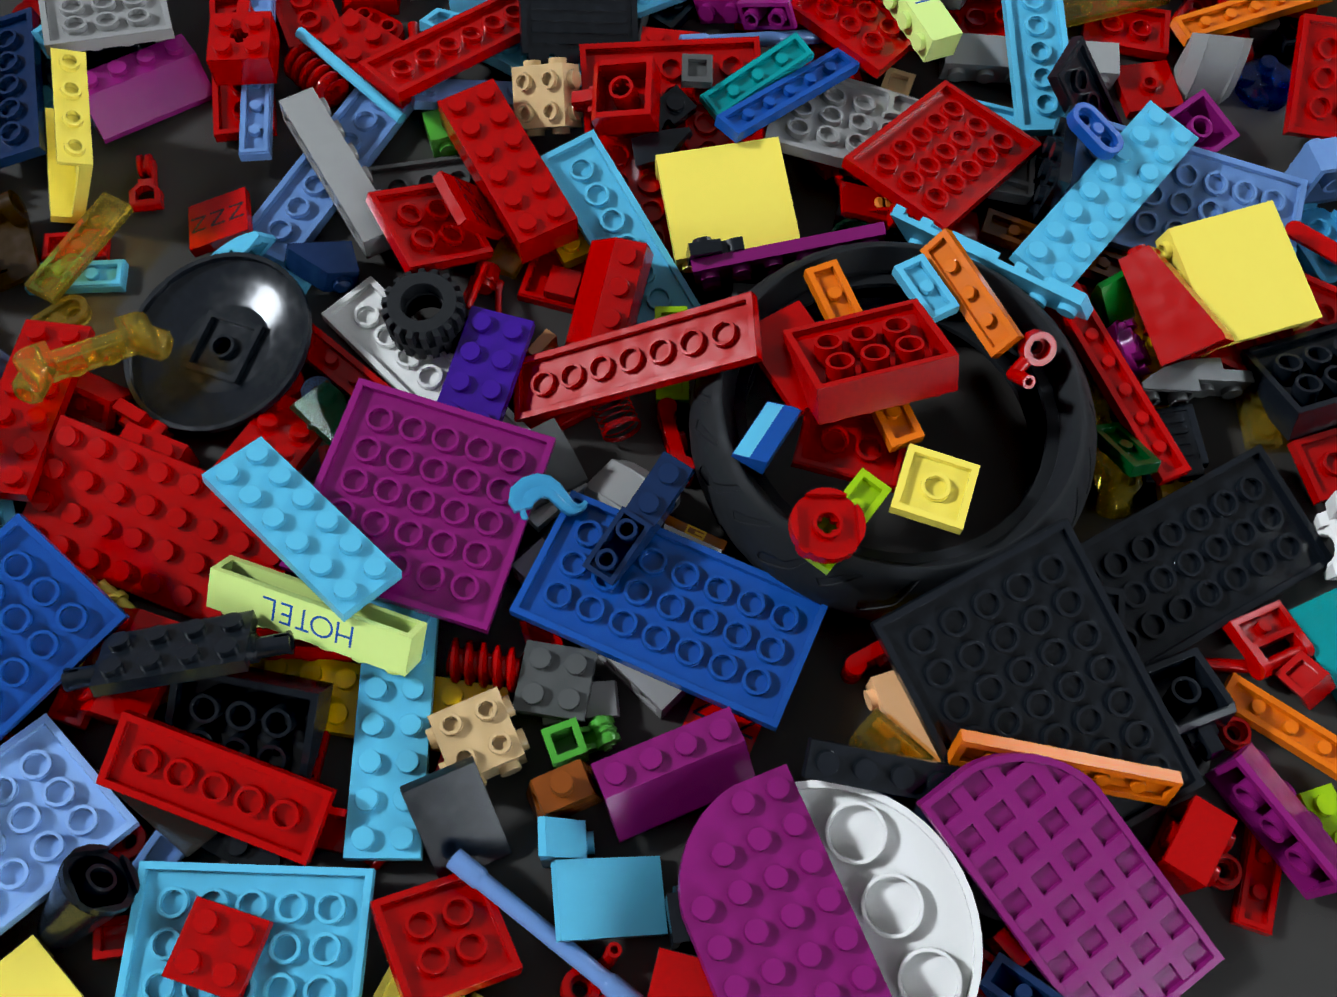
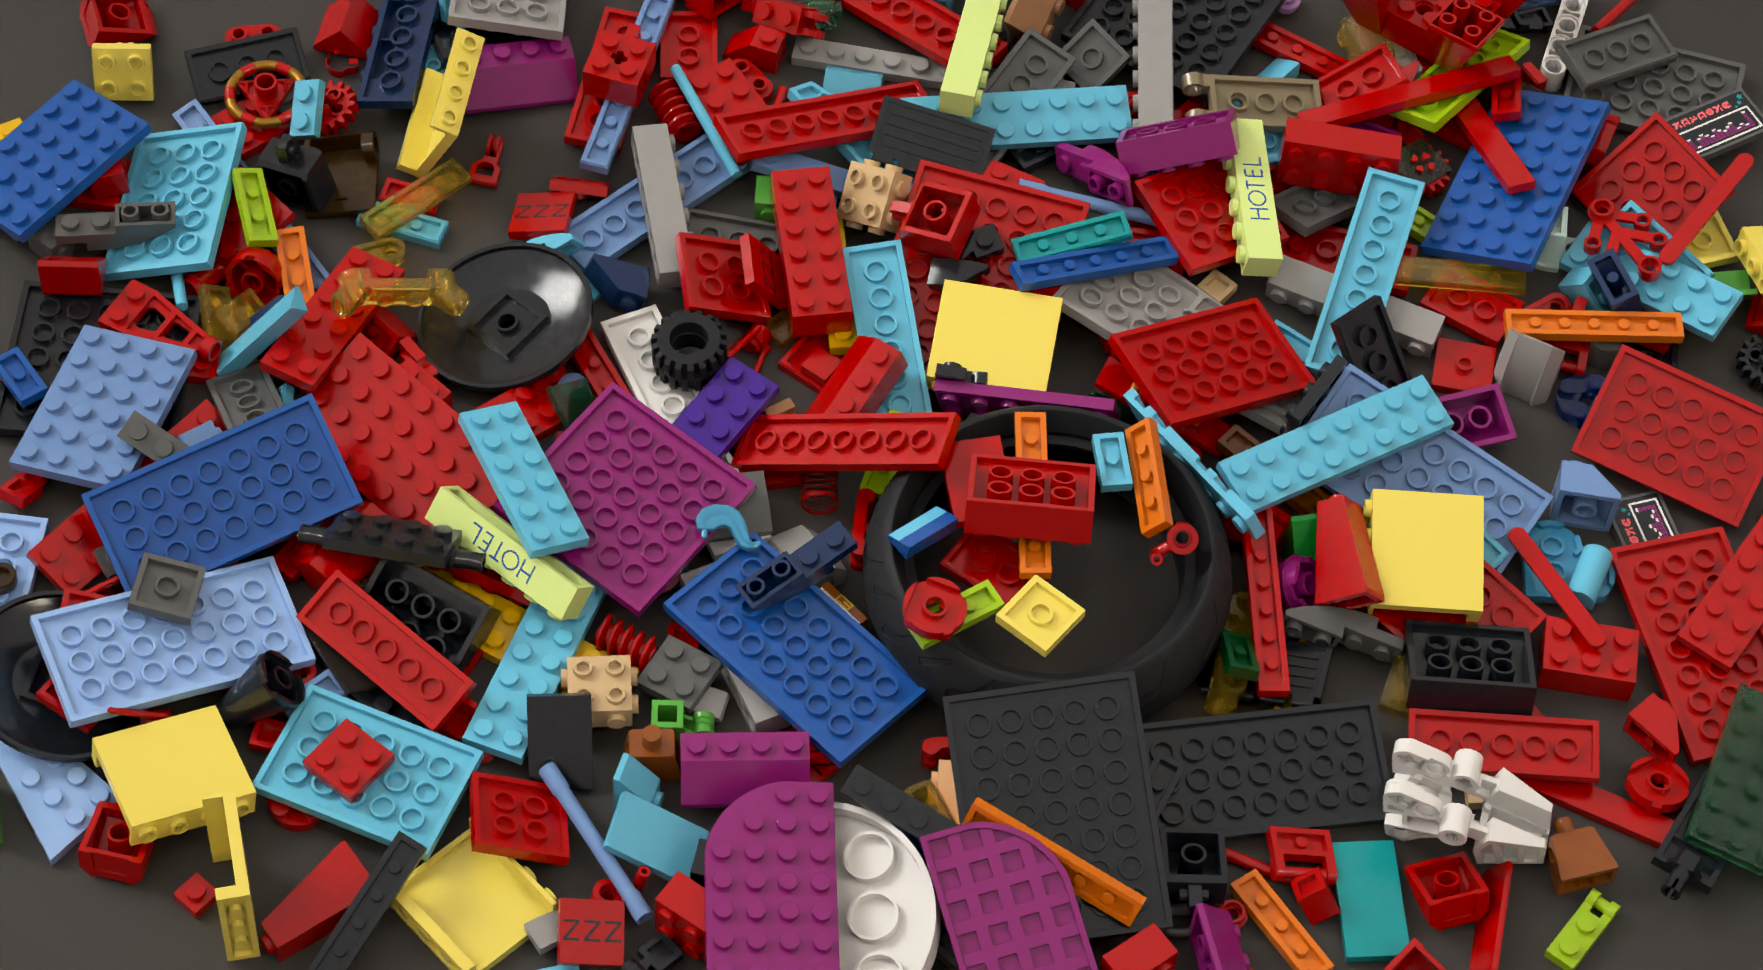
camera: 20 degrees right, 10 degrees down
(250, 180) = (580, 186): none -> red plate
(697, 71) = (1016, 216): dark grey plate -> none
(1094, 131) = (1344, 384): blue plate -> none

